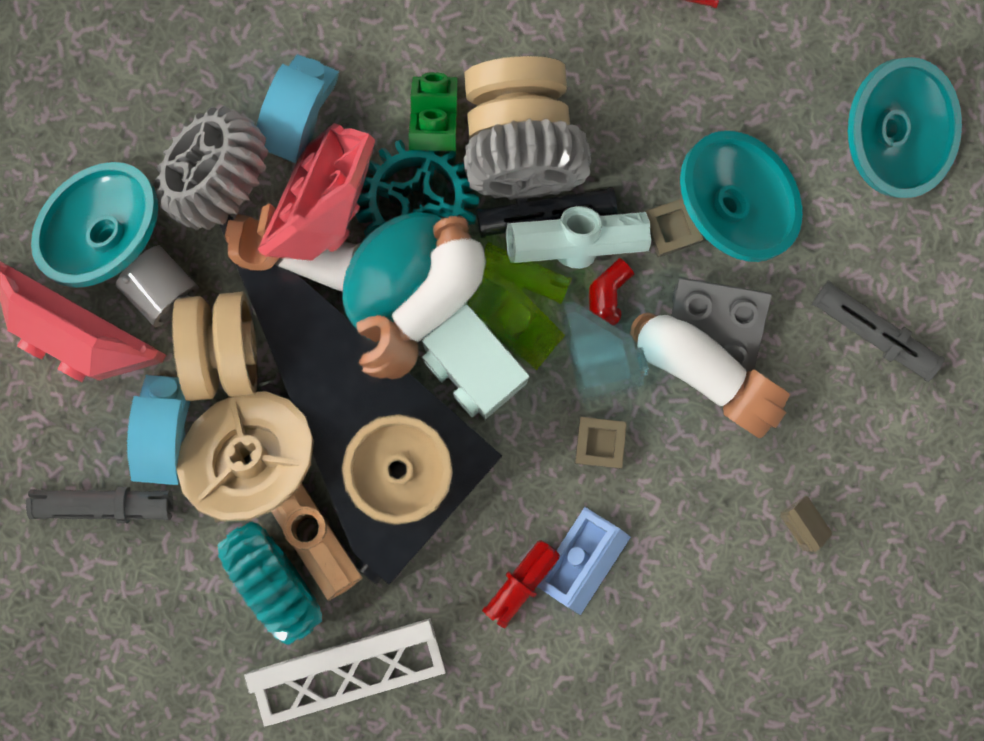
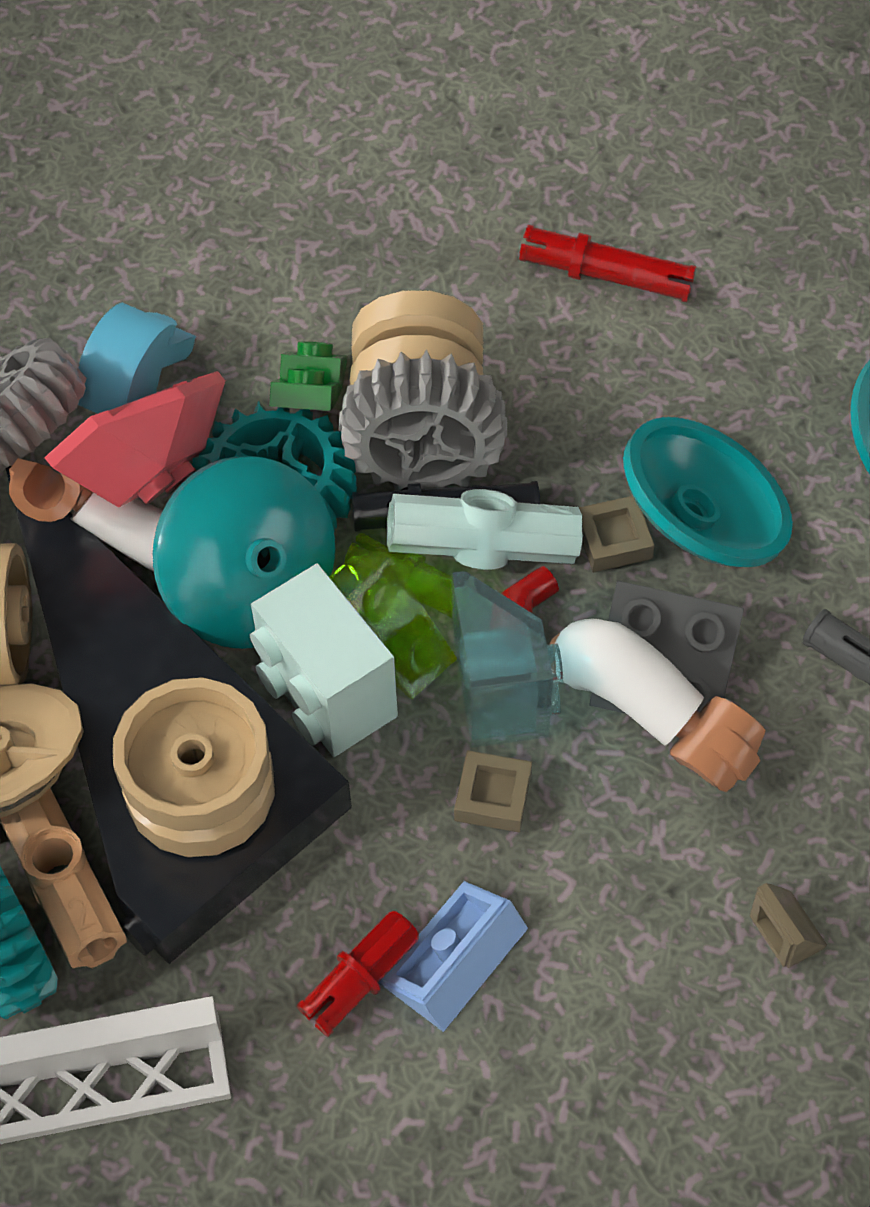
camera: 10 degrees right, 25 degrees down
(451, 282) = (292, 538): piece -> none

